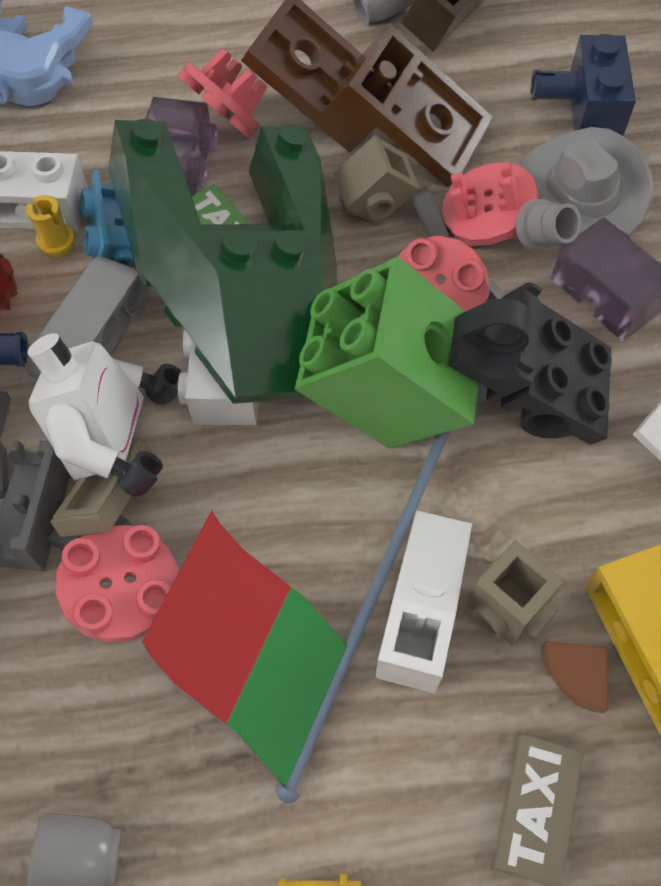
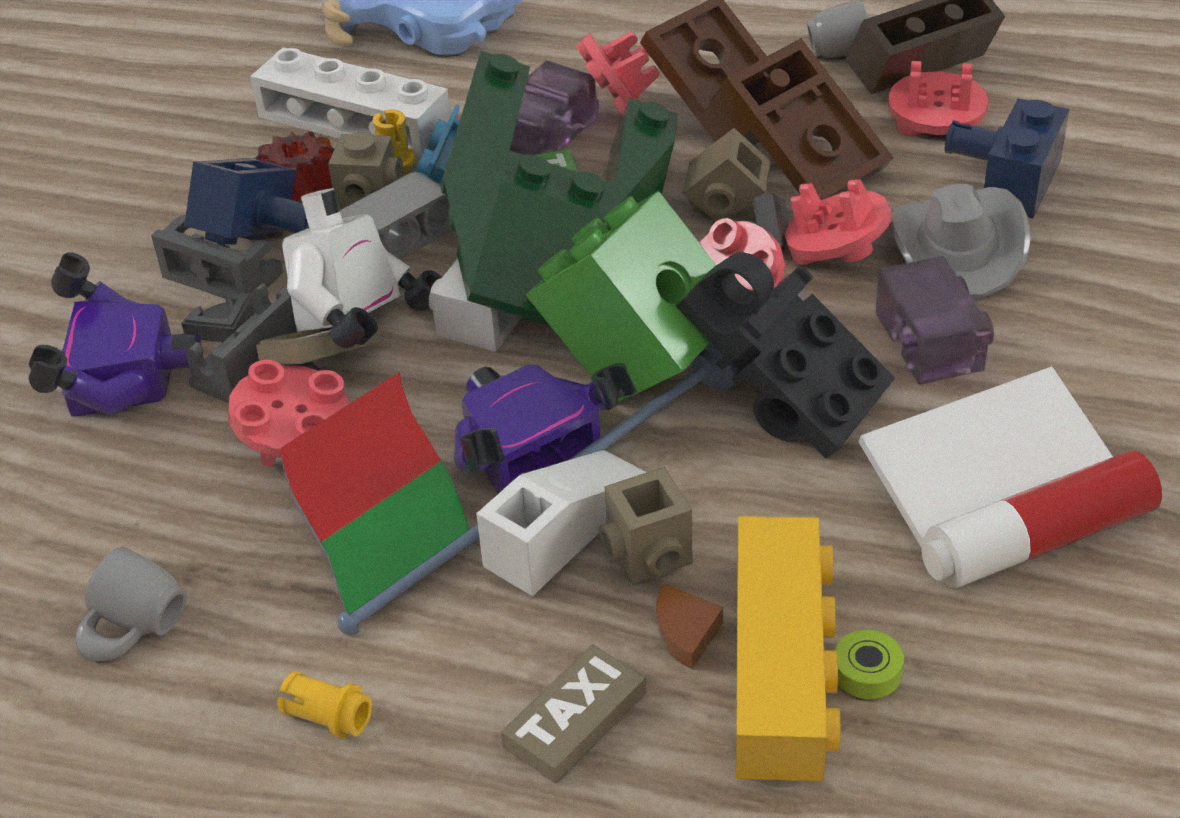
camera: 25 degrees right, 20 degrees down
(41, 269) = (362, 166): none -> dark tan brick
(343, 510) = (531, 419): none -> dark purple torso
(495, 48) = (934, 99): none -> coral plate
(547, 224) = (860, 249): light grey piece -> none

